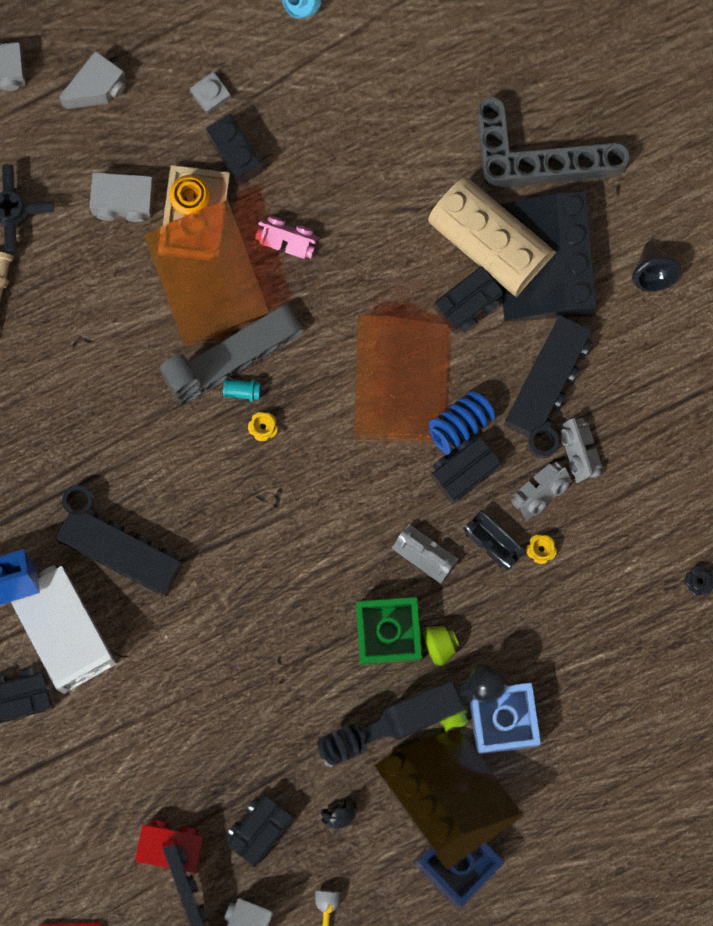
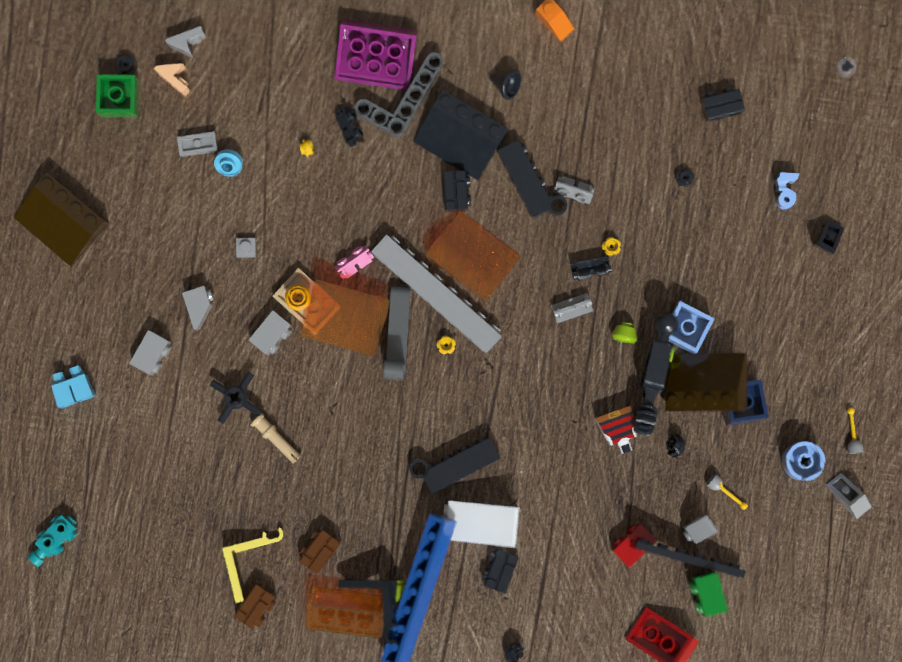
camera: 50 degrees left, 5 degrees up
(234, 150) = (287, 256): black brick -> none
(242, 389) = (419, 342): teal pin -> none
(259, 830) = (656, 493): black brick -> none
(308, 720) = (618, 428): none -> torso
(318, 368) = (436, 294): none -> light grey brick
(388, 631) = (601, 355): green brick -> none
(390, 79) = (306, 147): none -> yellow plate
(459, 418) = (515, 241): blue piece -> none
(464, 103) = (347, 118): none -> black hinge
(465, 469) = (543, 255): black brick -> none
(490, 235) = (430, 155): tan container -> none
(552, 482) = (583, 232): light grey hinge -> none
(571, 80) = (376, 54): none -> magenta slope

